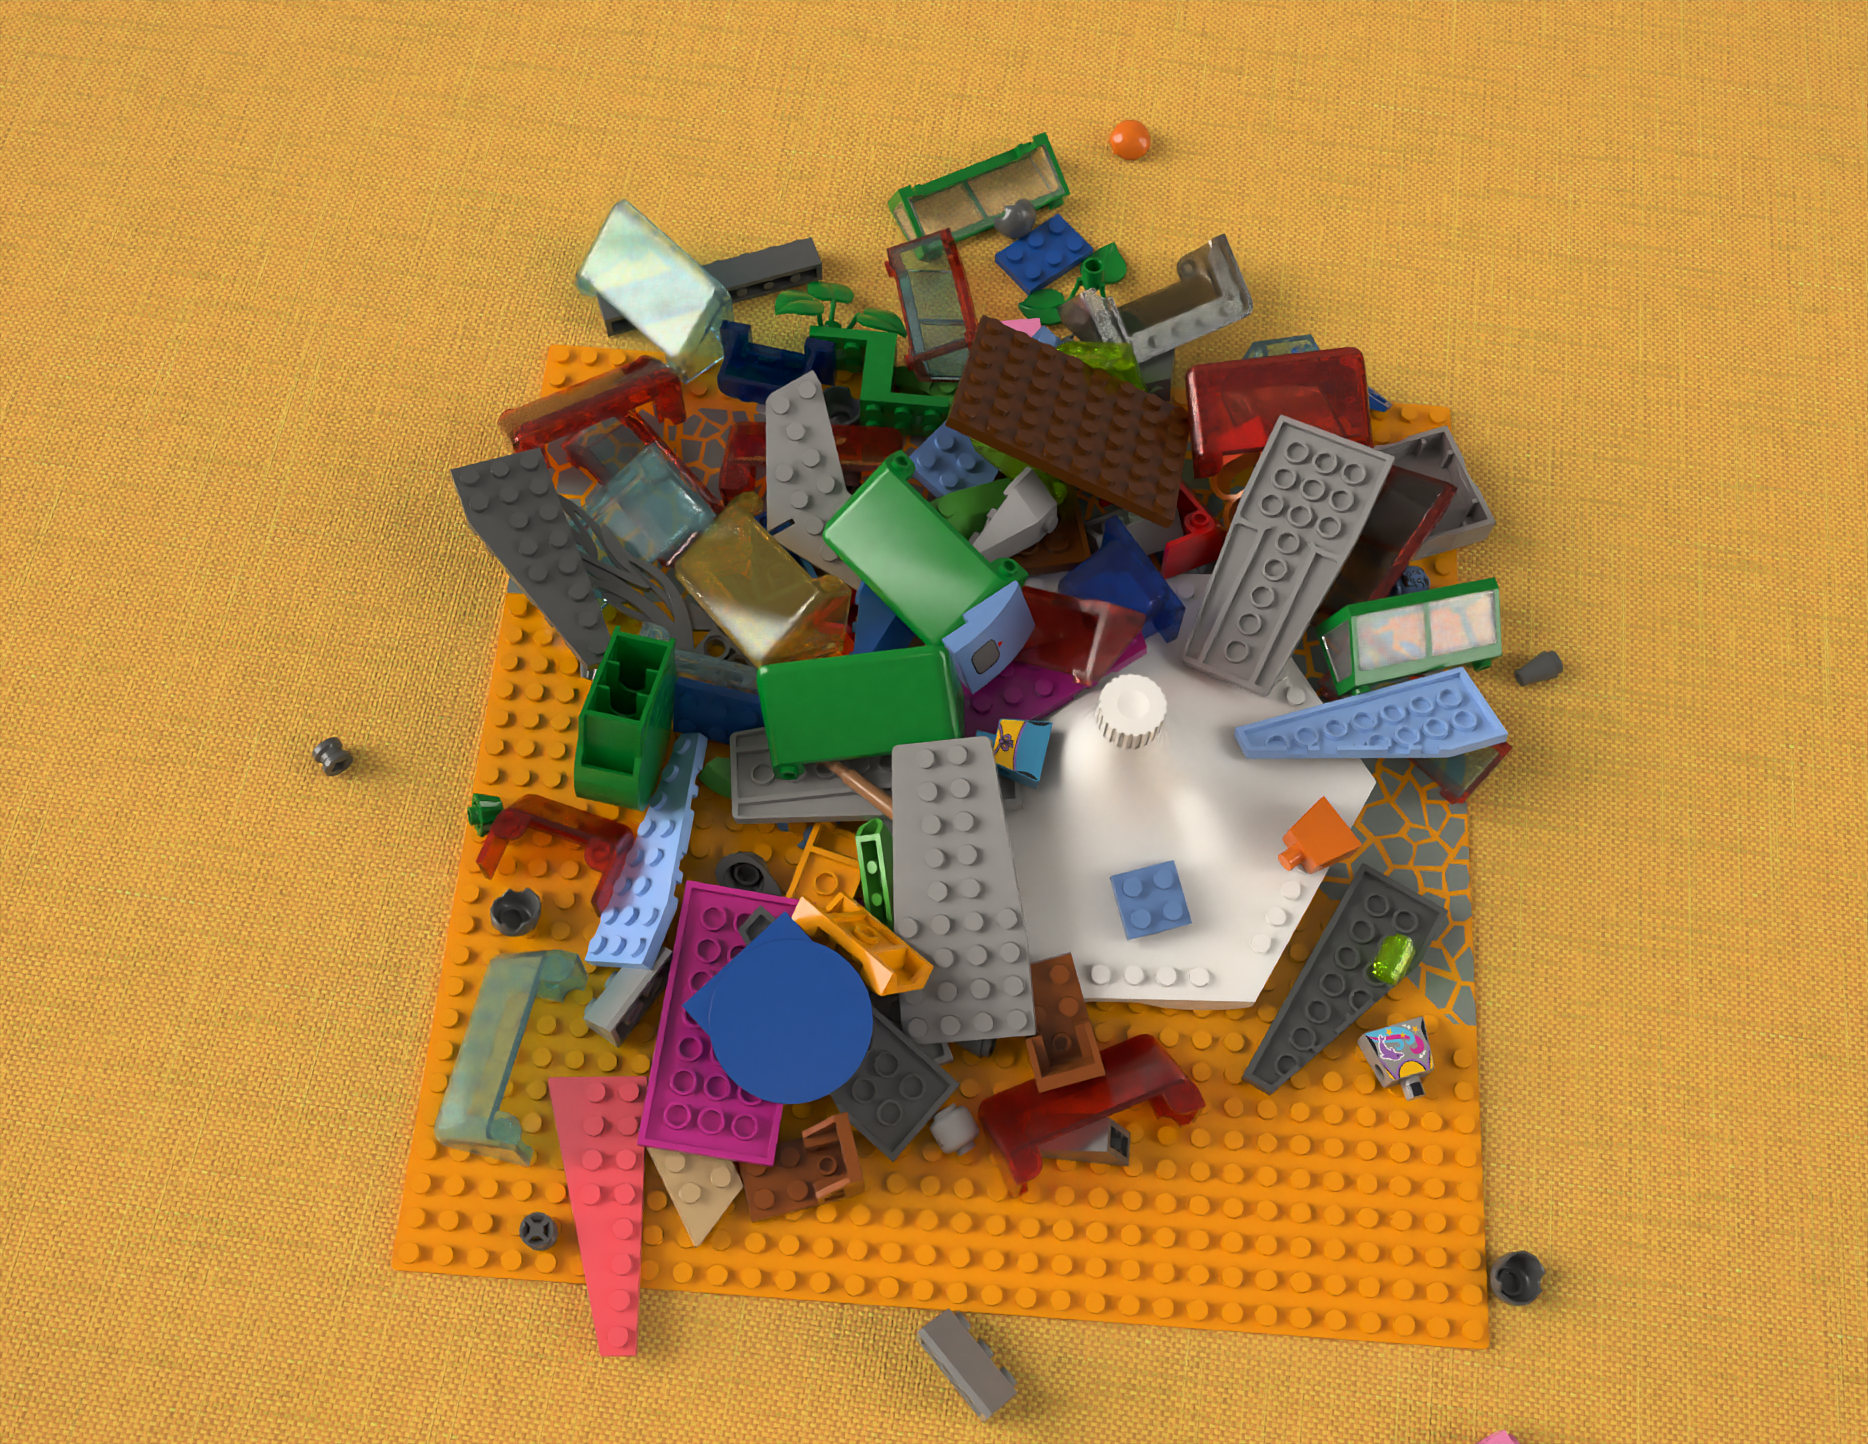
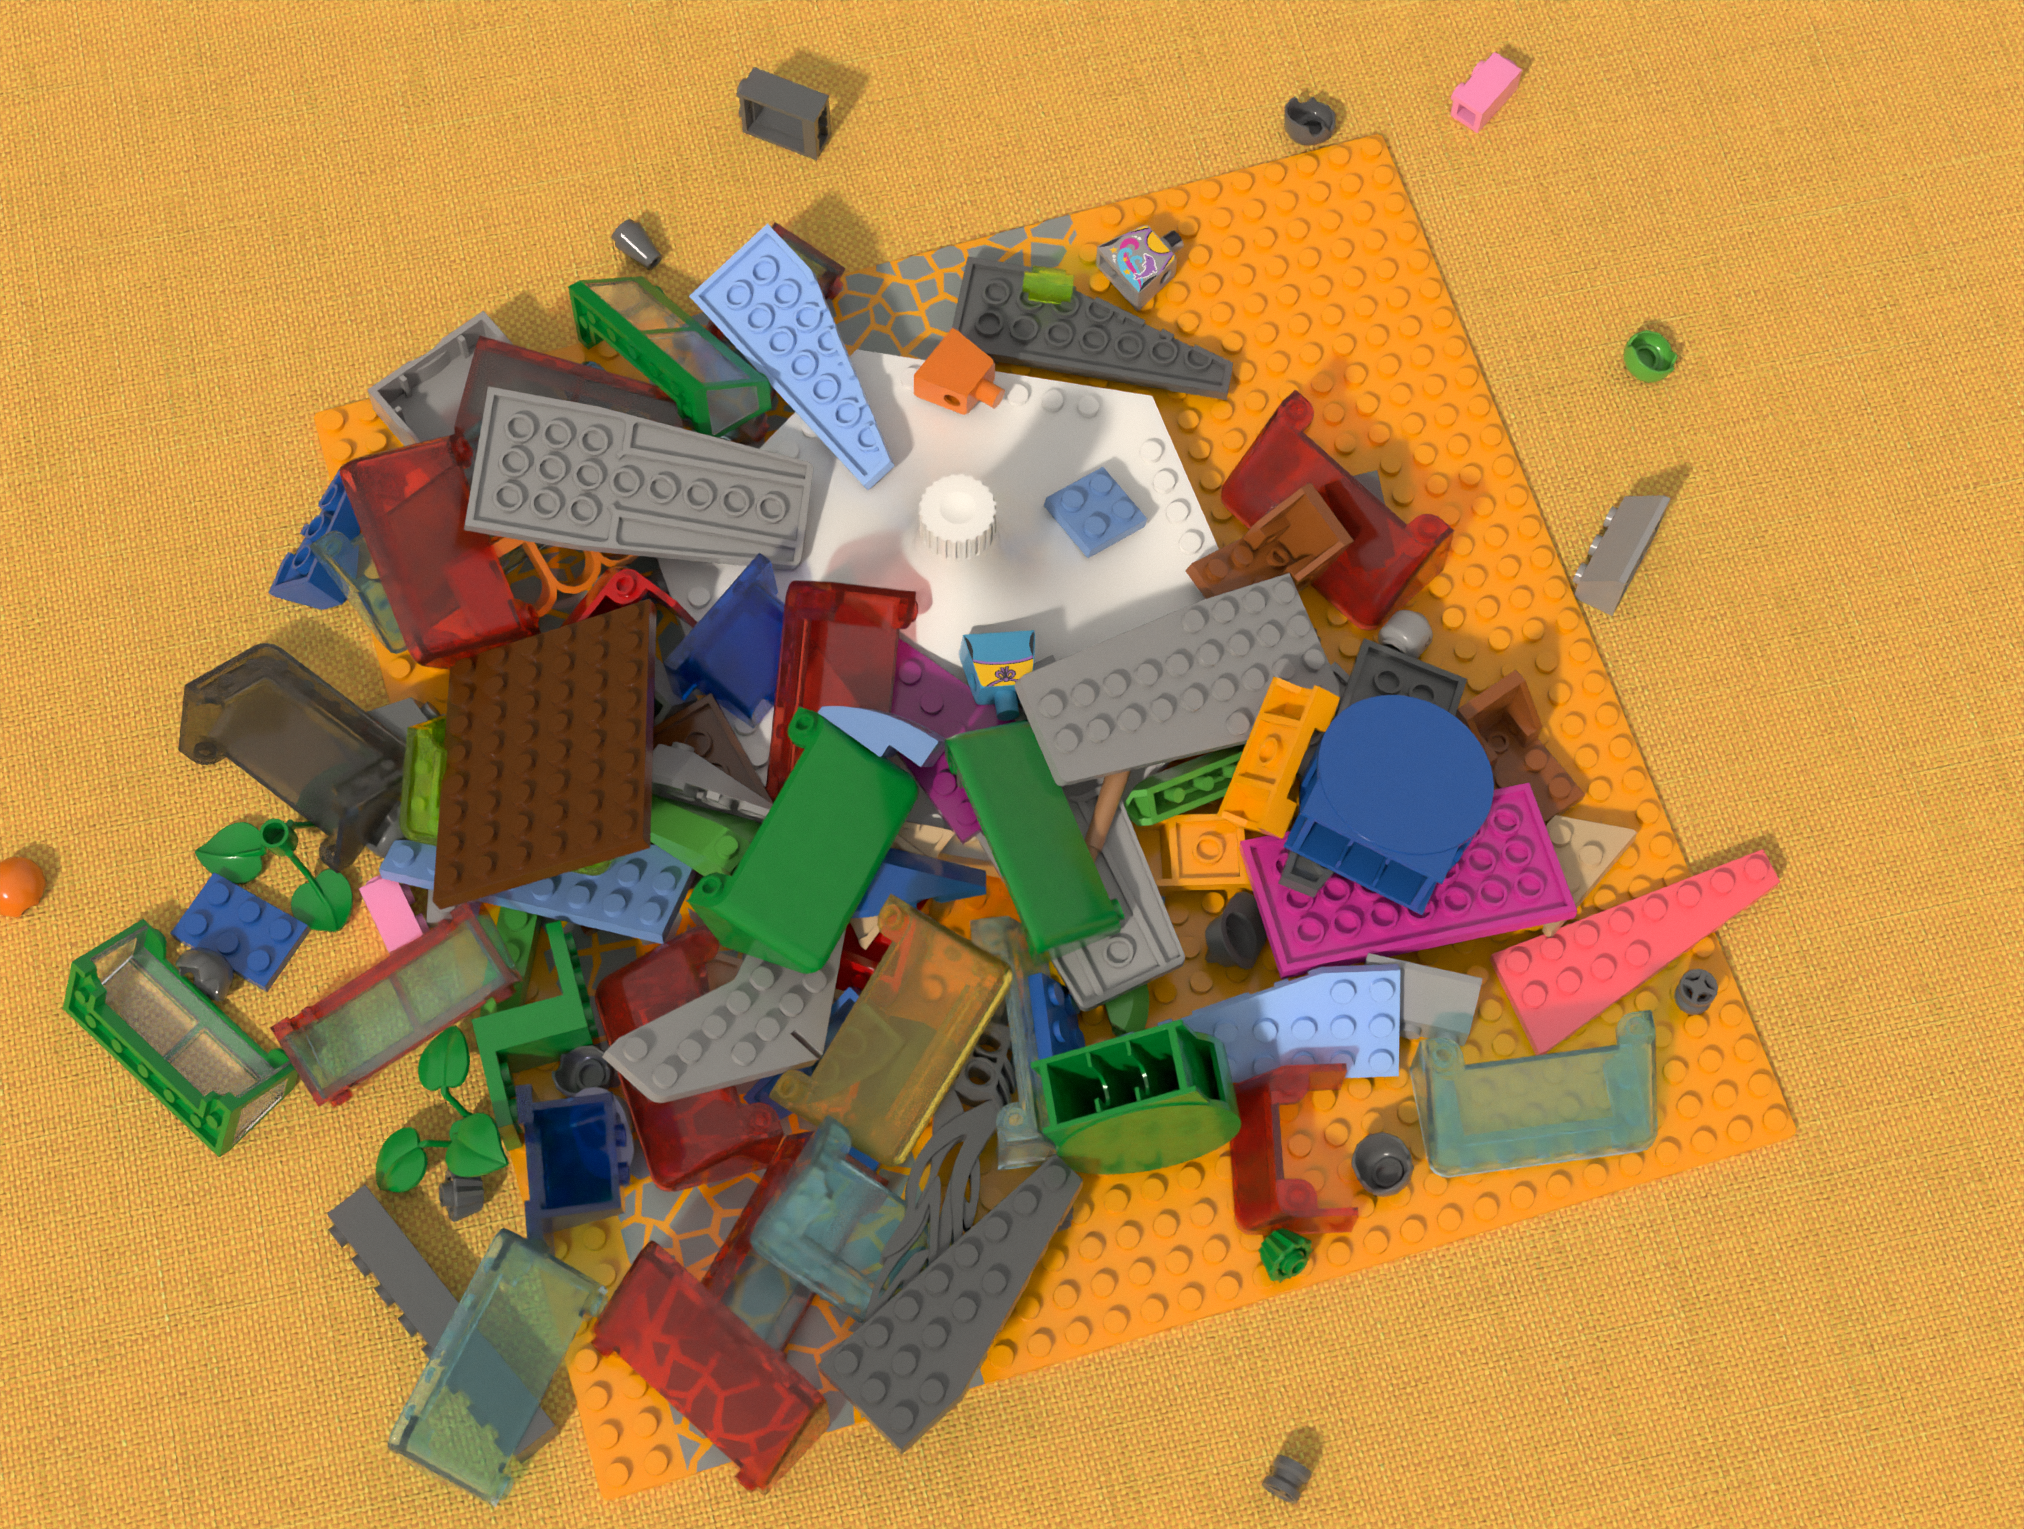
camera: 110 degrees left, 0 degrees up
(794, 324) = (461, 1195): none -> dark grey piece
(1637, 814) = (784, 113): none -> dark grey window

